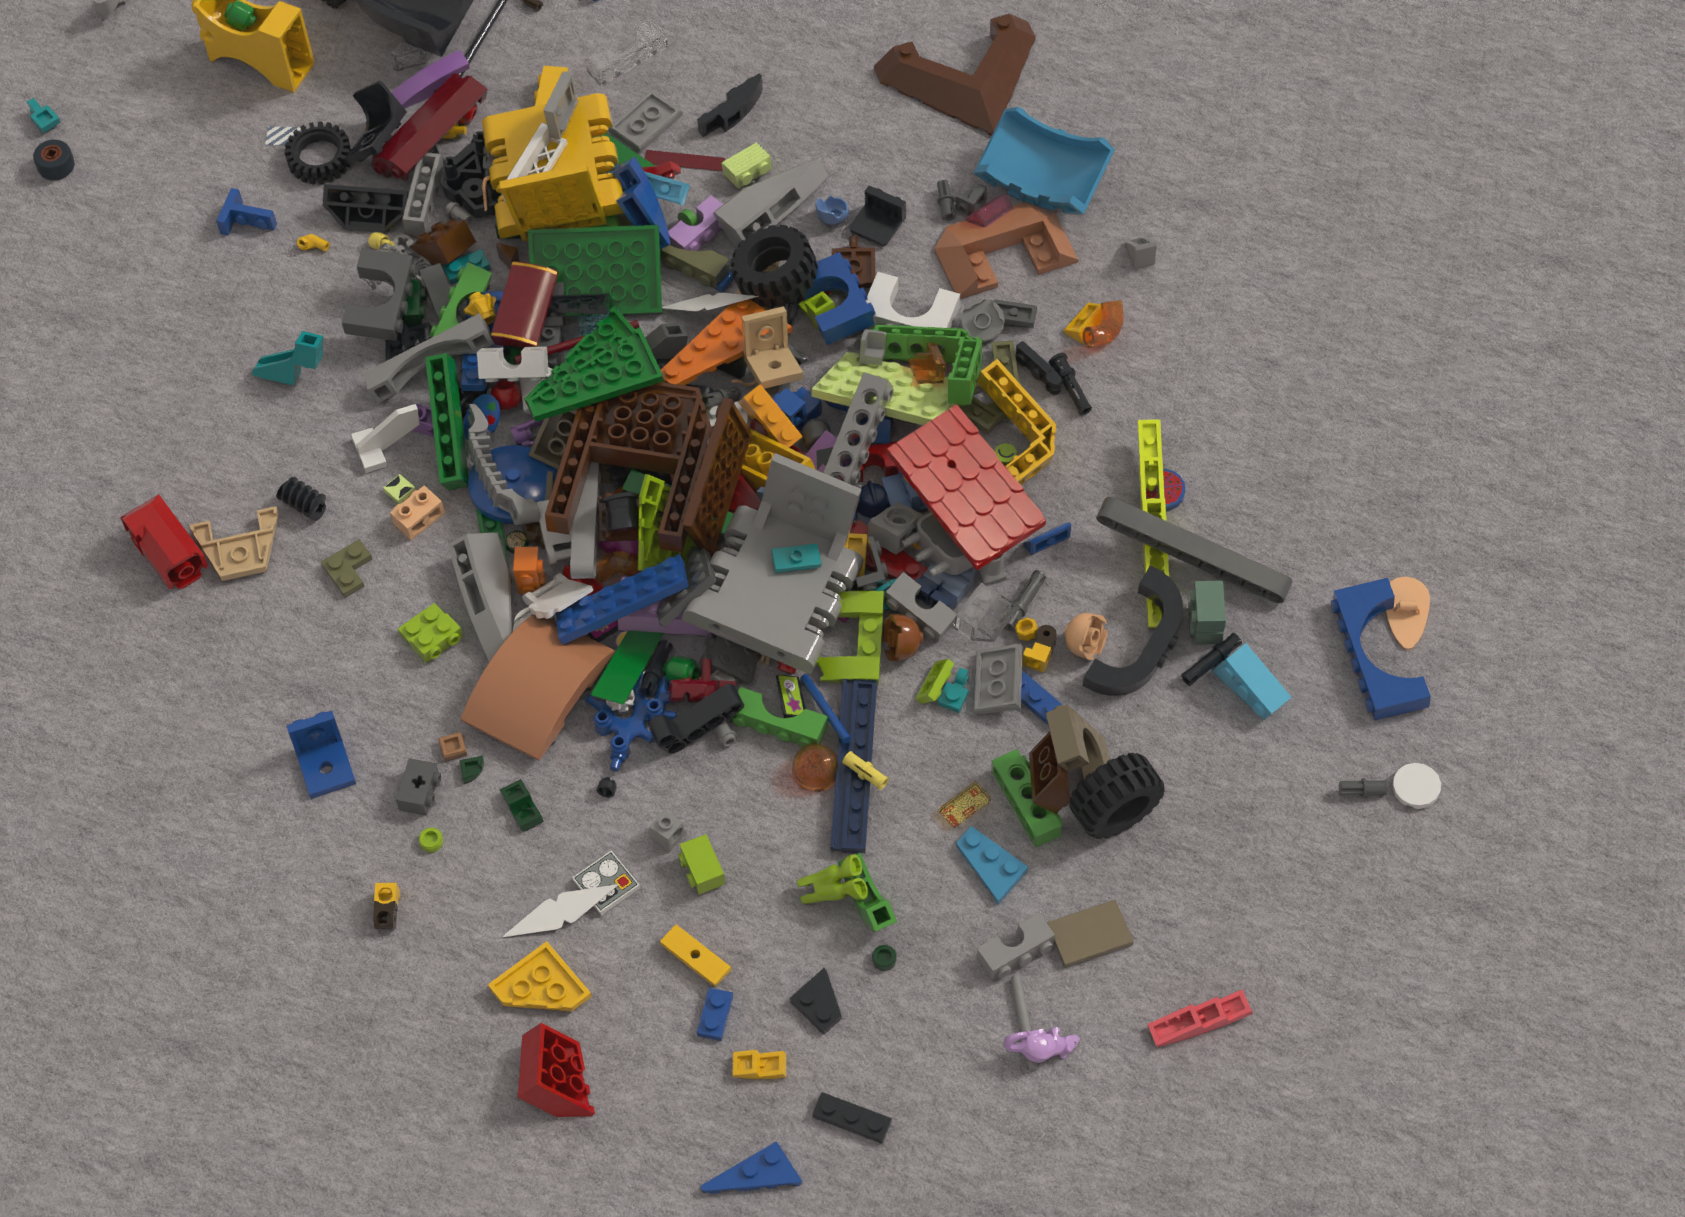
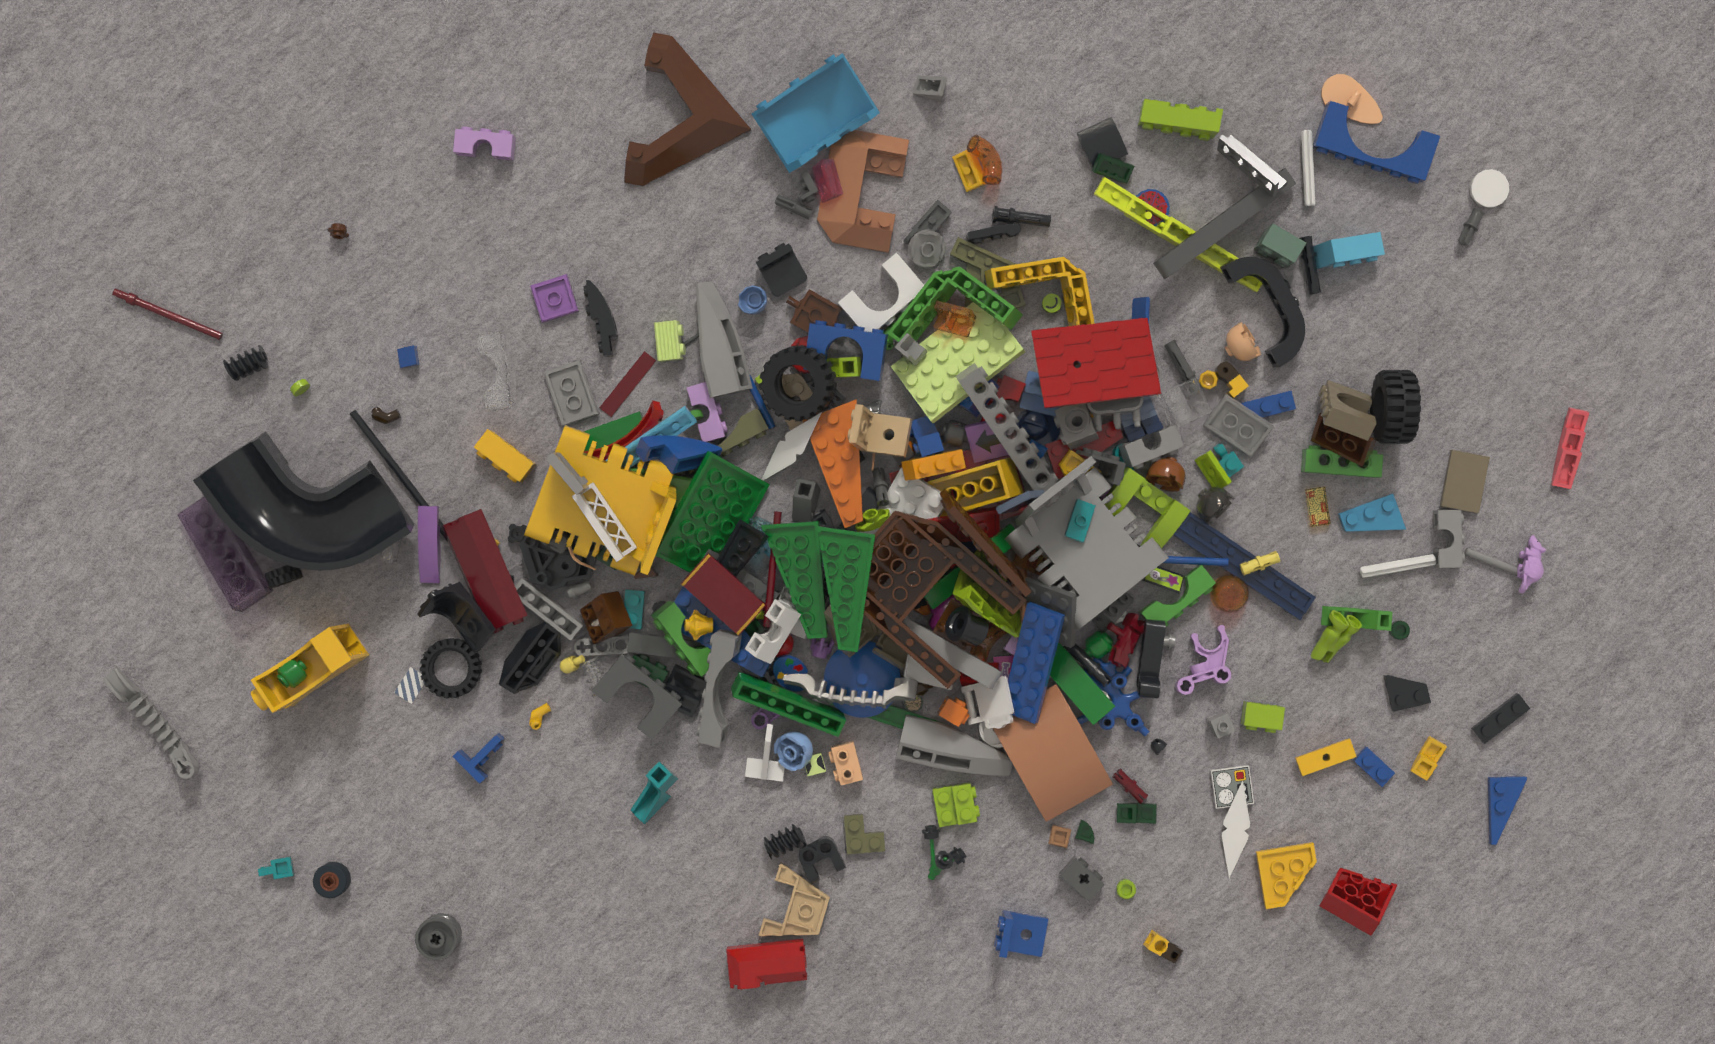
camera: 70 degrees left, 30 degrees up
(42, 263) = (430, 945): none -> dark grey wheel
(290, 532) = (819, 854): none -> black piece
(365, 630) = (943, 859): none -> black plant
(404, 457) = (793, 750): none -> light blue cylinder
(547, 783) = (1130, 785): none -> dark red pin
(718, 788) = (1214, 662): none -> lavender piece
(727, 67) = (554, 298): none -> medium lavender tile
(898, 696) = (1212, 503): none -> clear smoke cylinder
(955, 918) = (1397, 566): none -> white axle
(1176, 432) = (1113, 168): none -> dark green plate
(1194, 415) = (1102, 139): none -> black slope
(1269, 464) = (1180, 119): none -> lime wedge
(1270, 543) = (1251, 165): none -> fence
(1305, 607) = (1308, 168): none -> white axle

